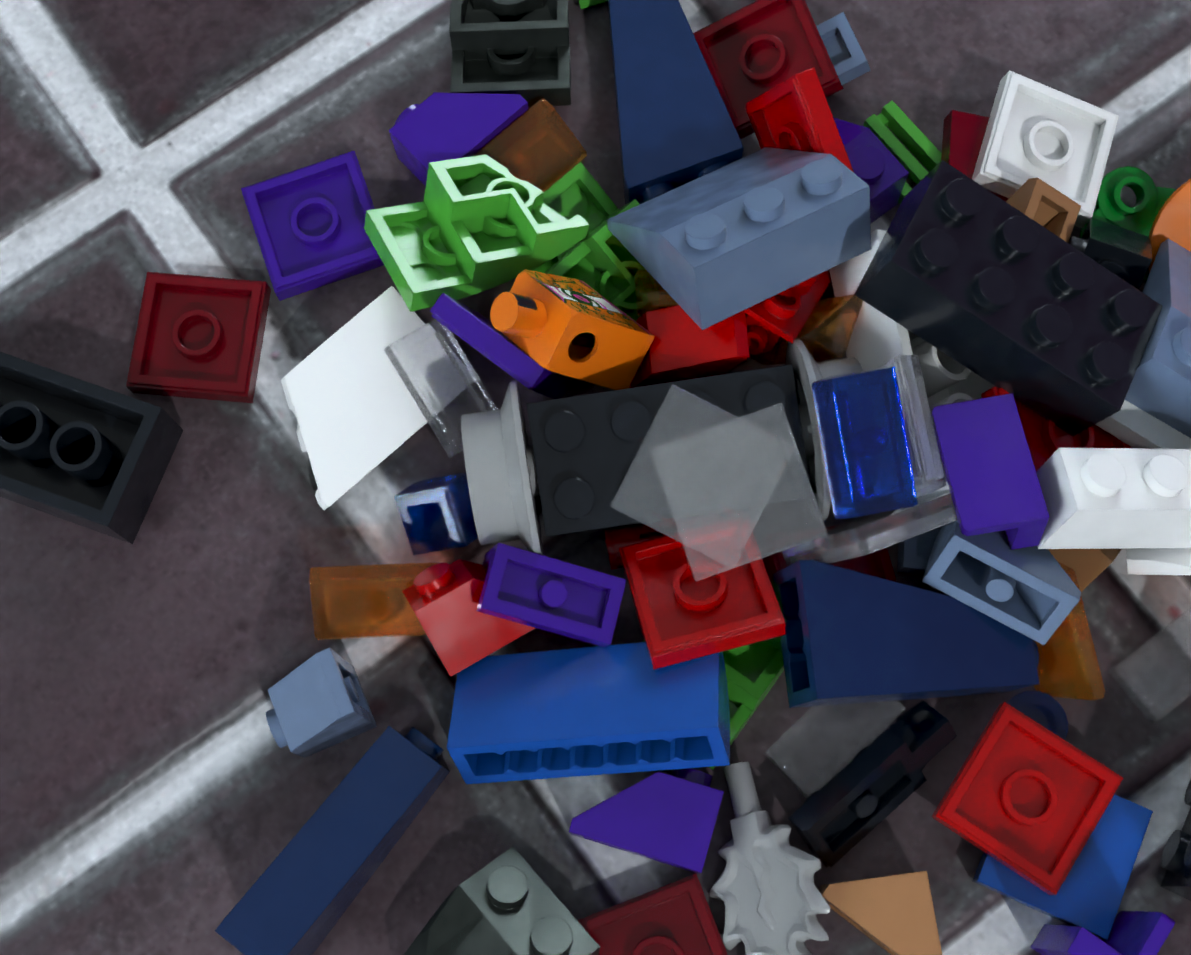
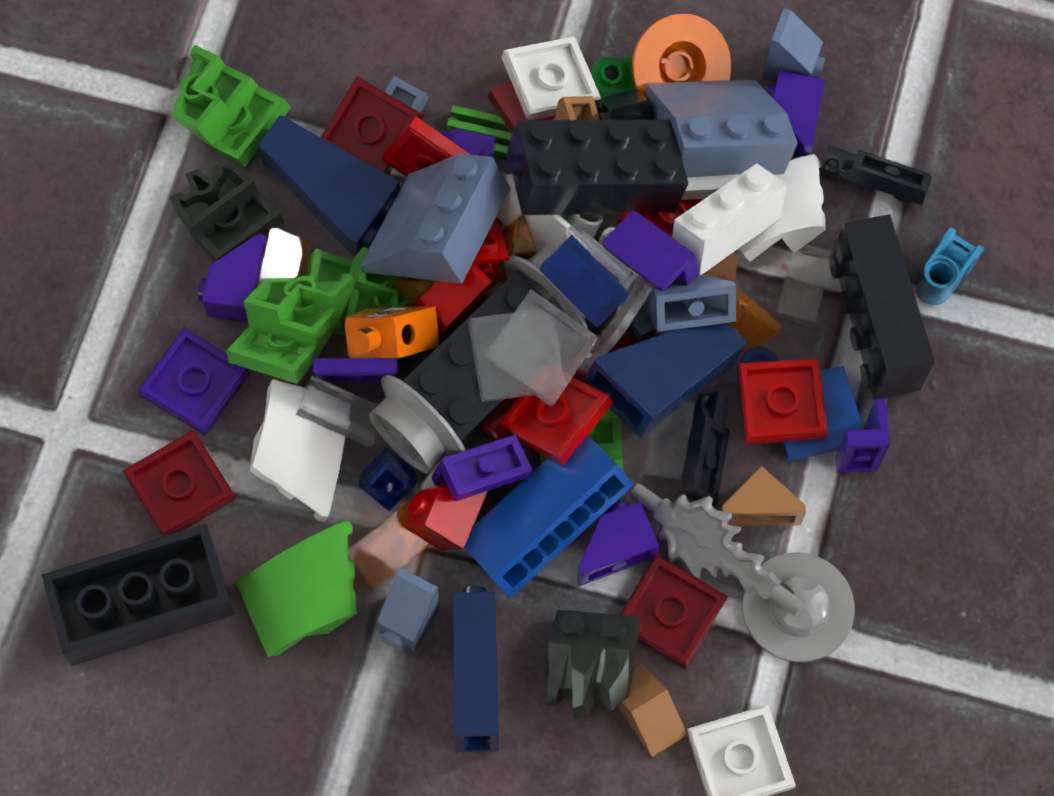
camera: 45 degrees left, 5 degrees down
(222, 577) = (302, 590): none -> bright green slope

